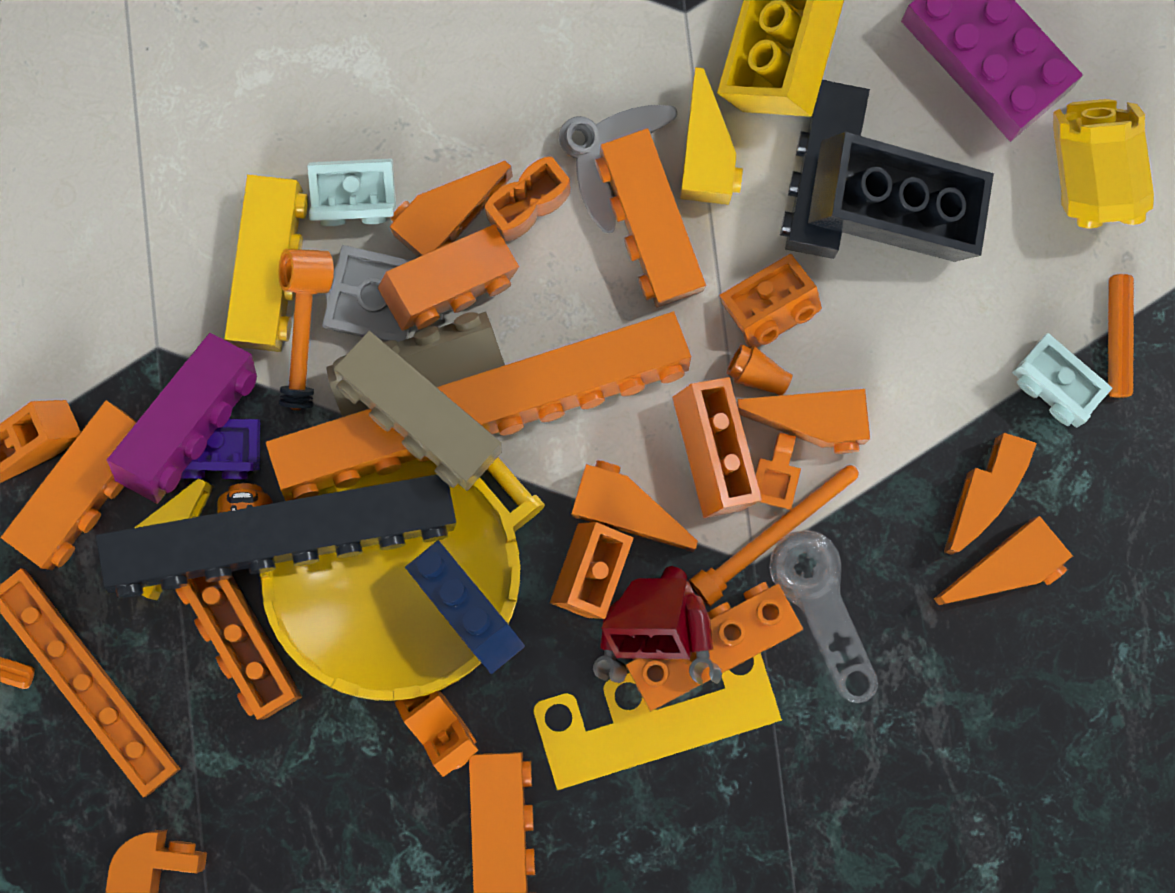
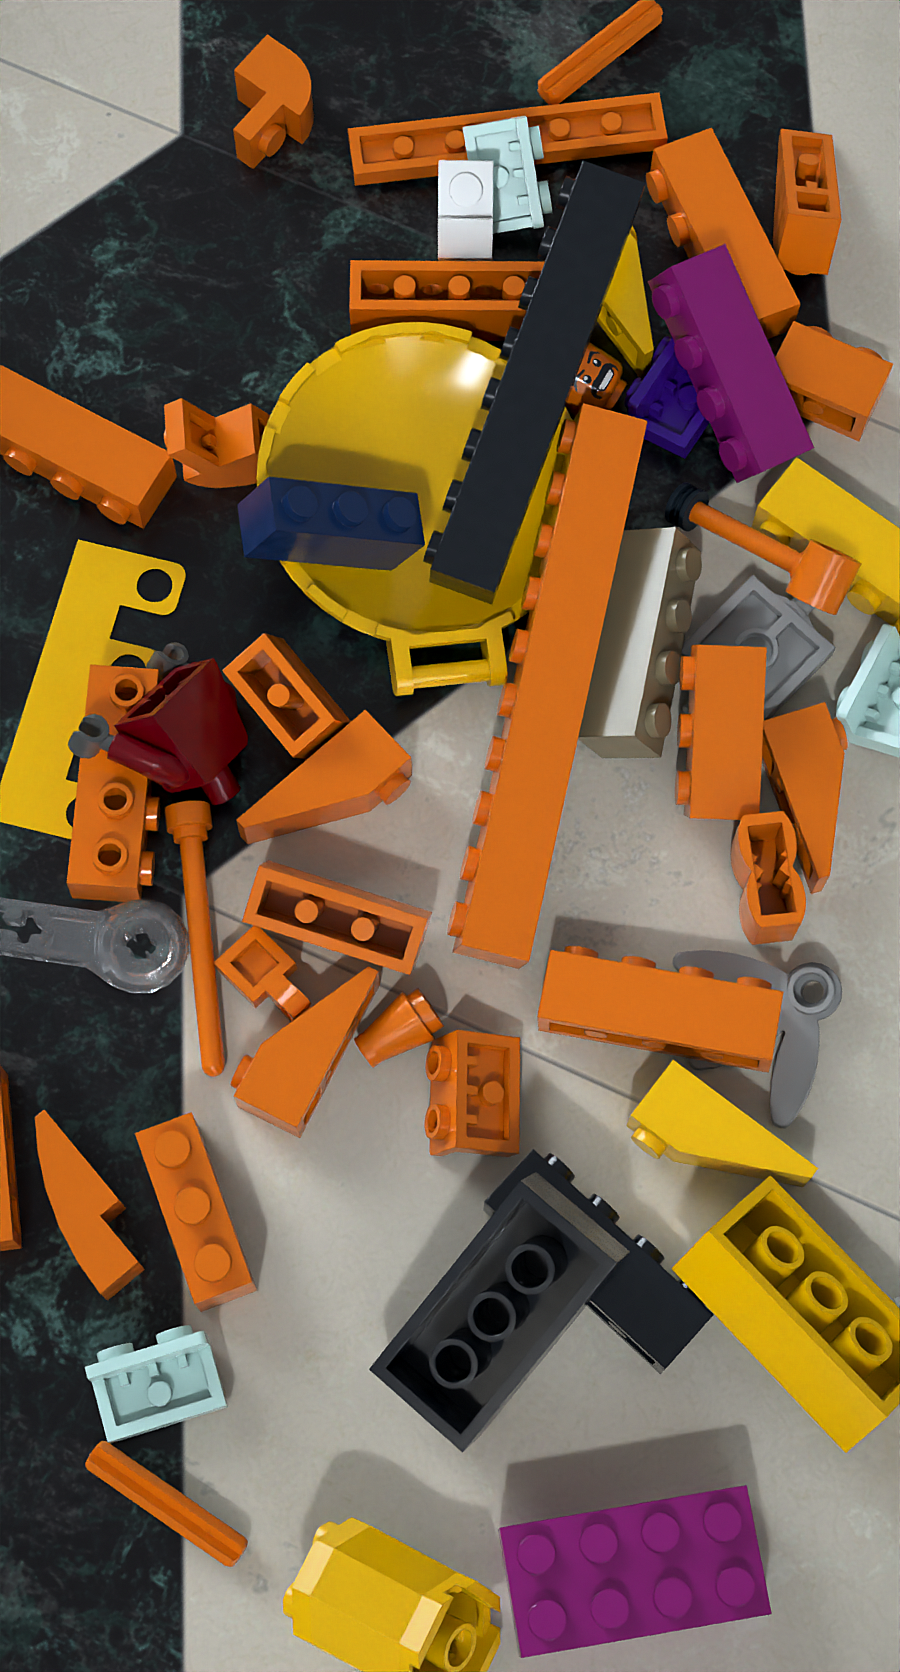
camera: 120 degrees right, 10 degrees down
(120, 660) = (516, 193): none -> light aqua bracket
(146, 353) = (832, 379): none -> orange brick
(173, 663) = (465, 210): none -> white brick
(417, 411) = (579, 586): dark tan brick -> none
(949, 421) = (195, 1212): none -> orange brick

